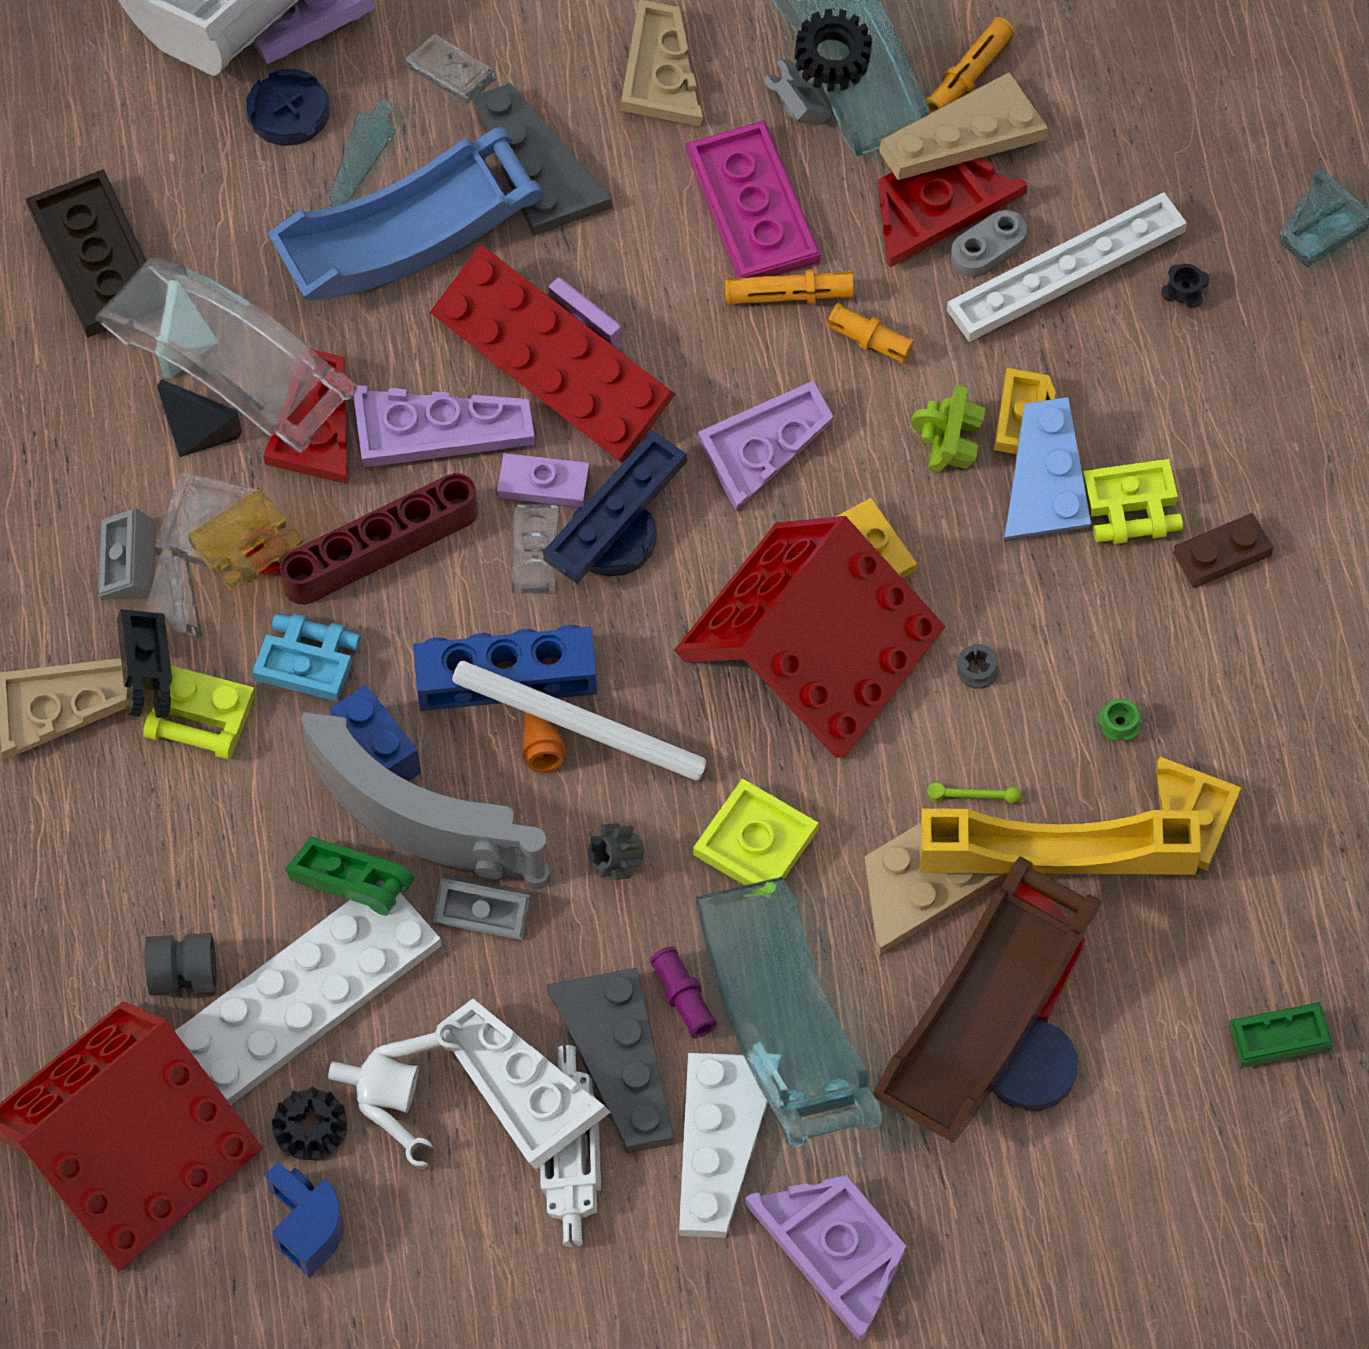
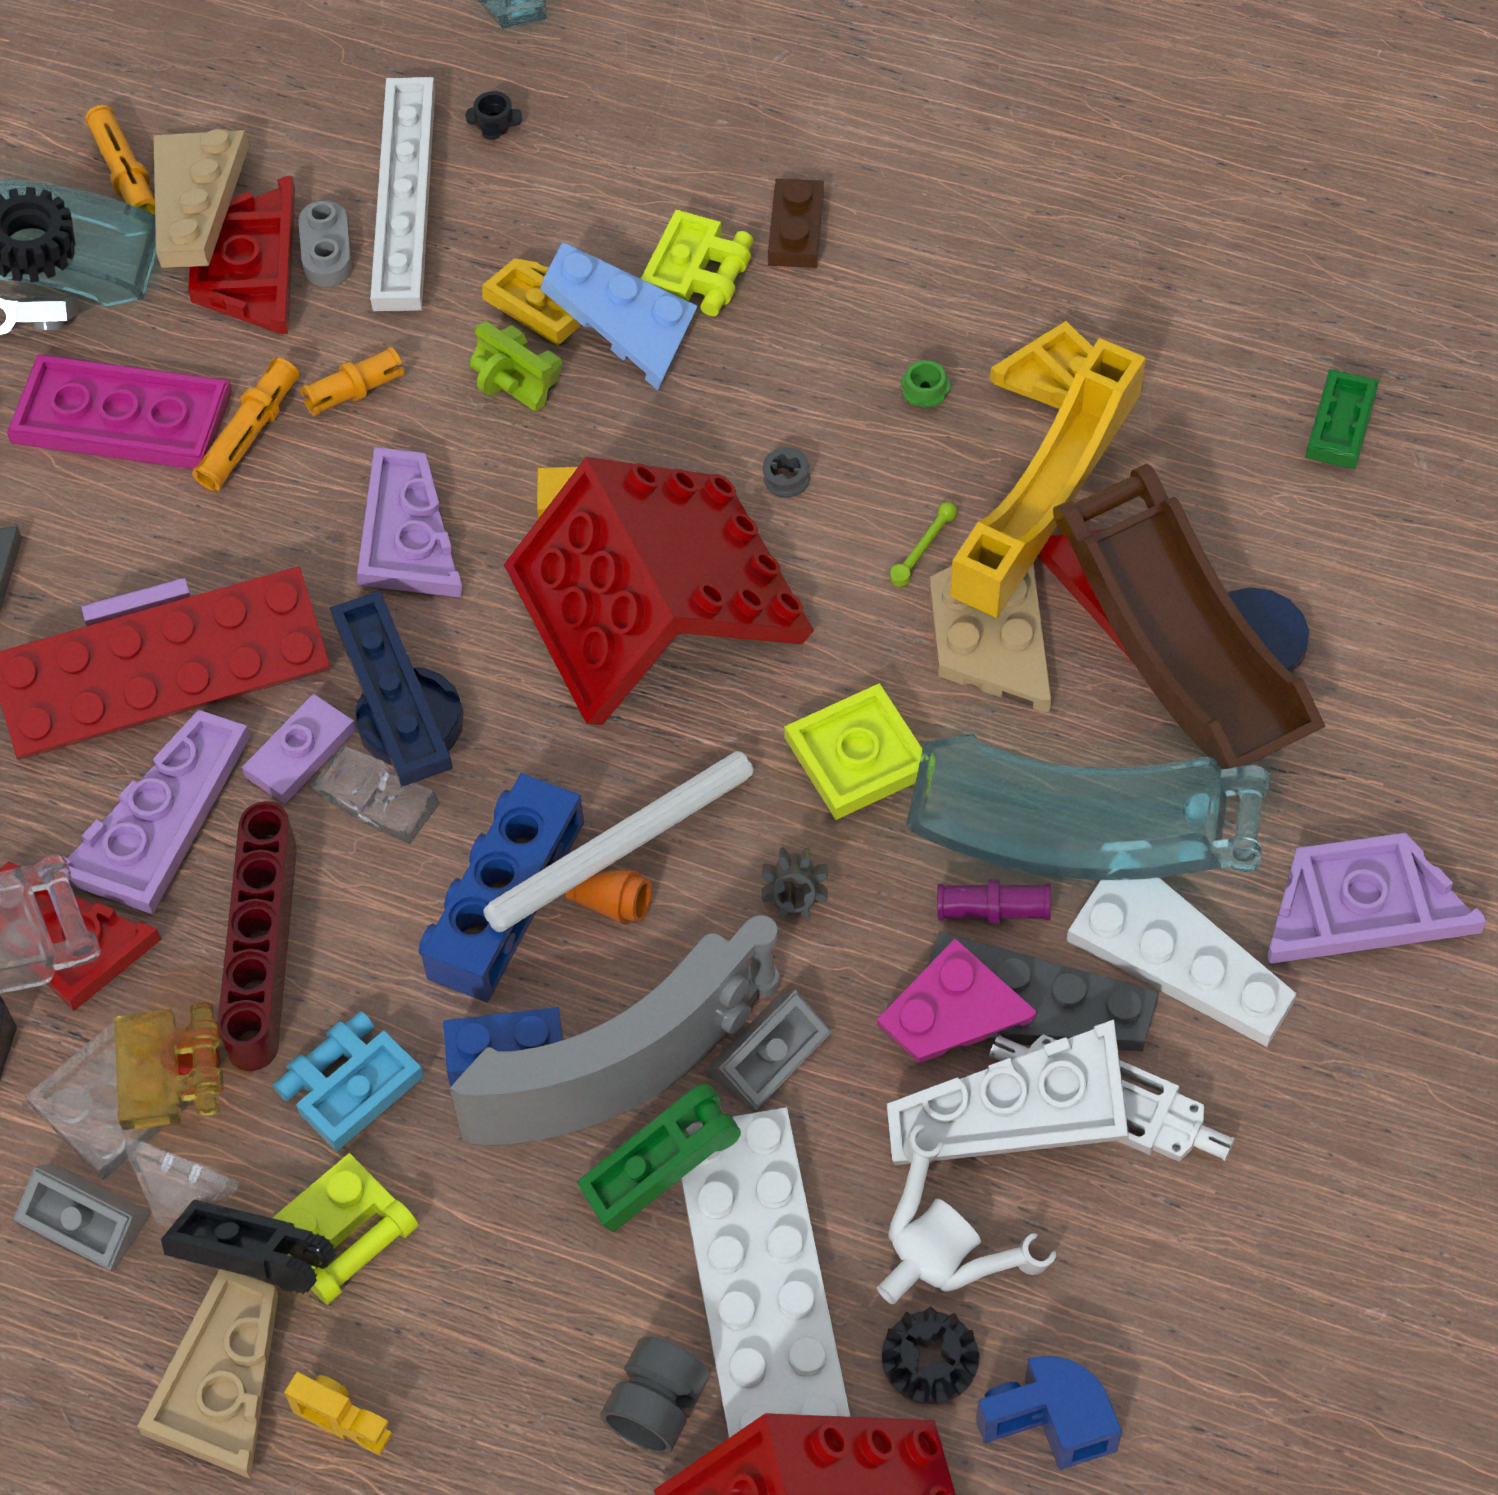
camera: 60 degrees left, 5 degrees down
(70, 774) = (328, 1406): none -> yellow plate
(575, 1003) = (952, 1006): none -> dark pink wing

